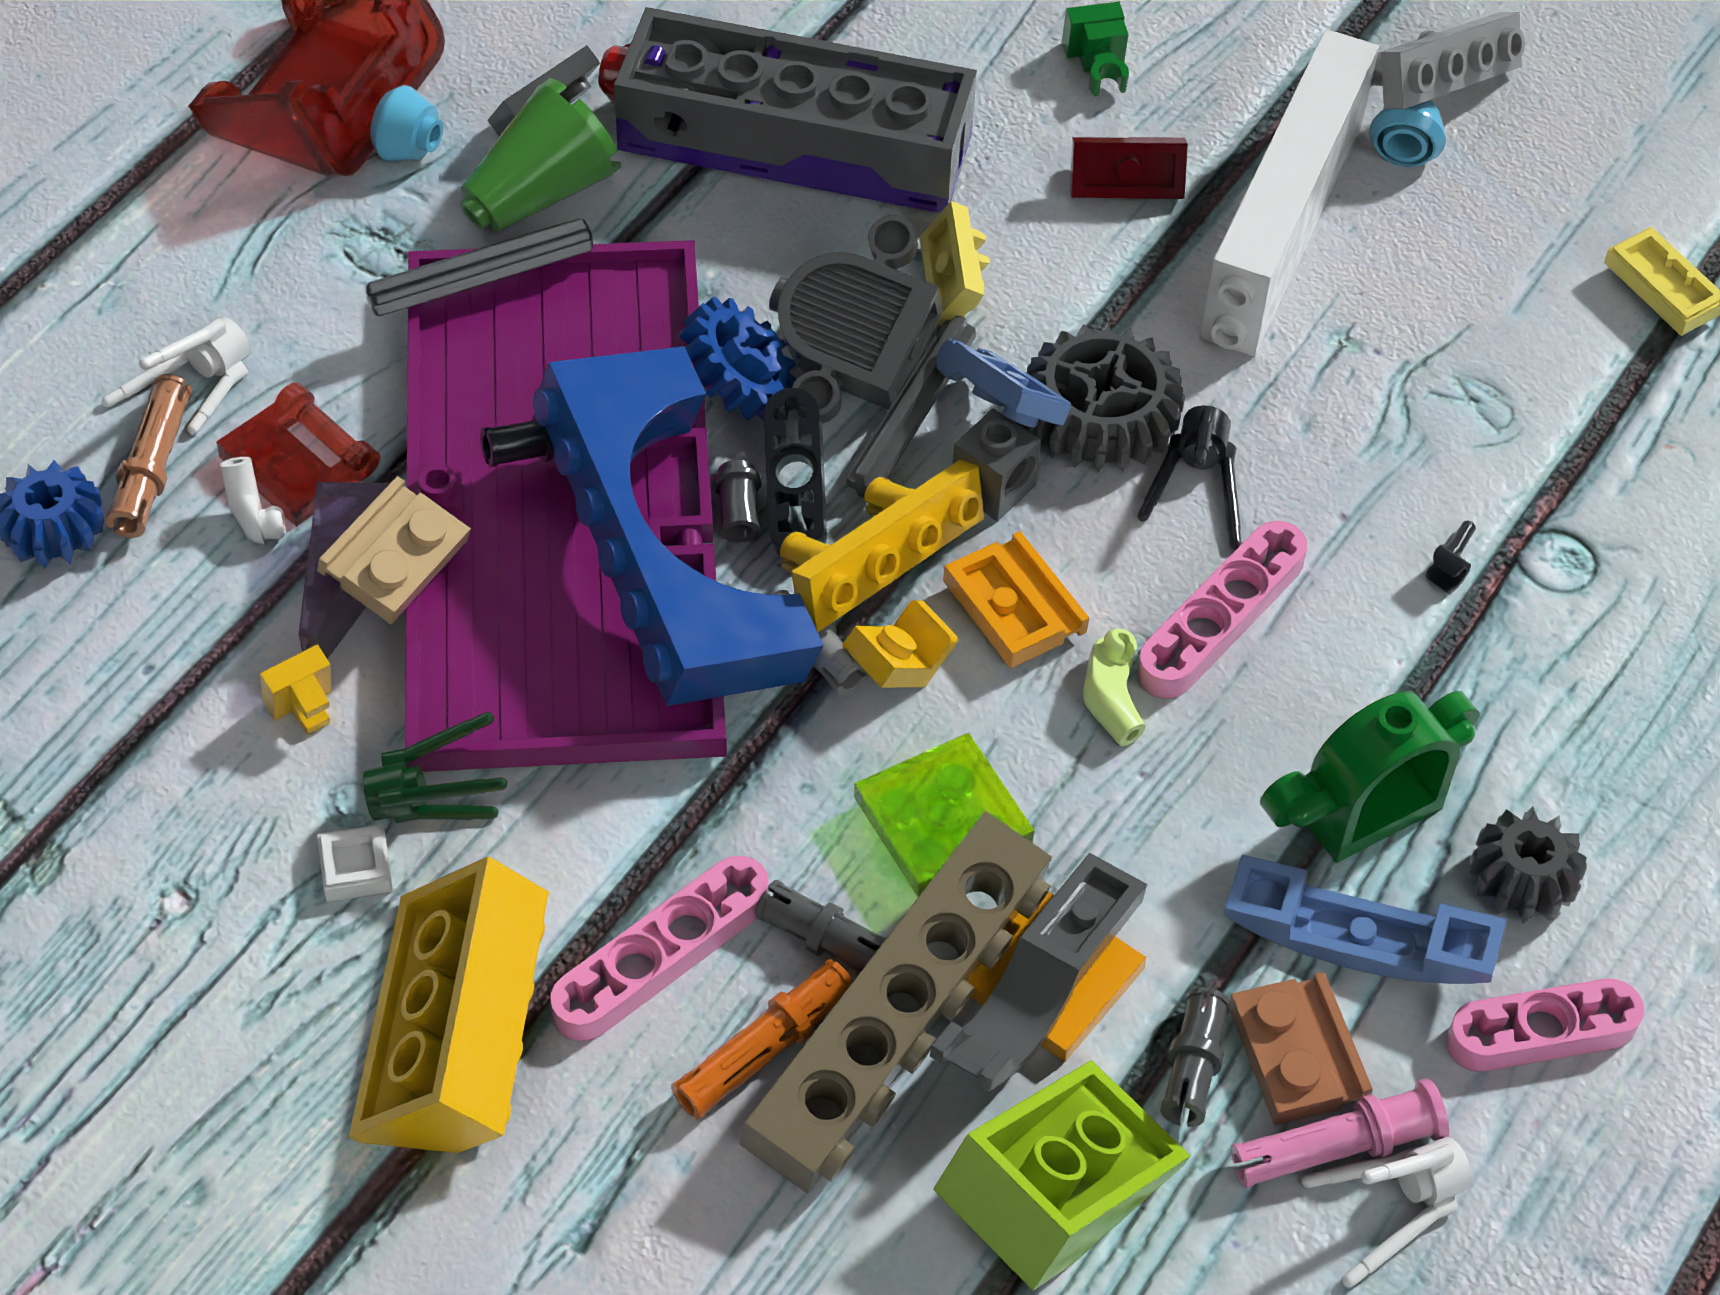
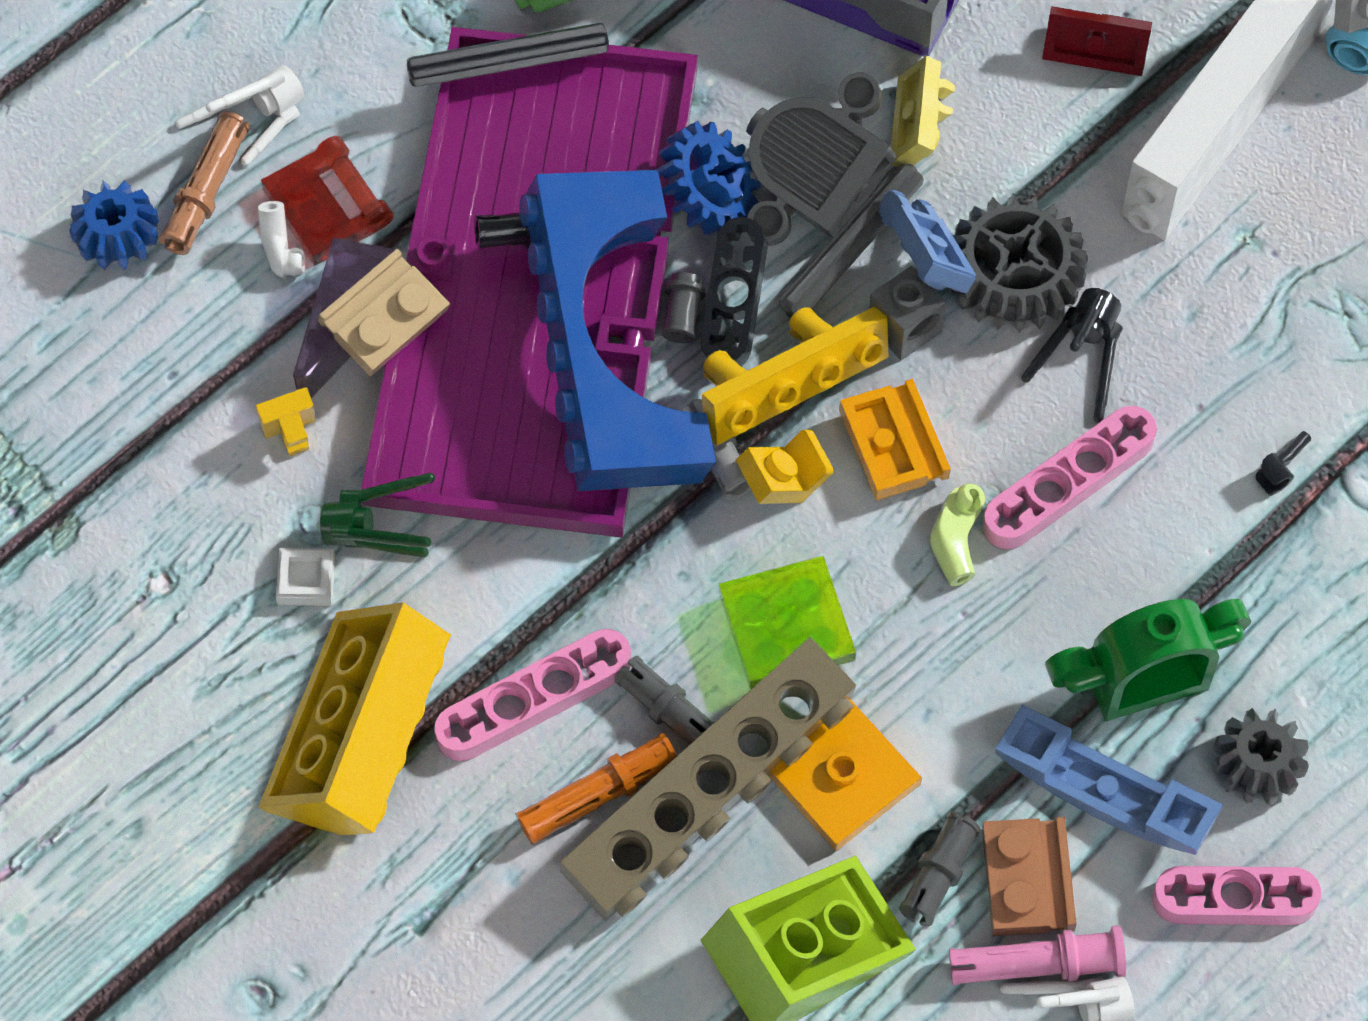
camera: 15 degrees right, 10 degrees up
(1043, 973) = (829, 779): dark grey piece -> none

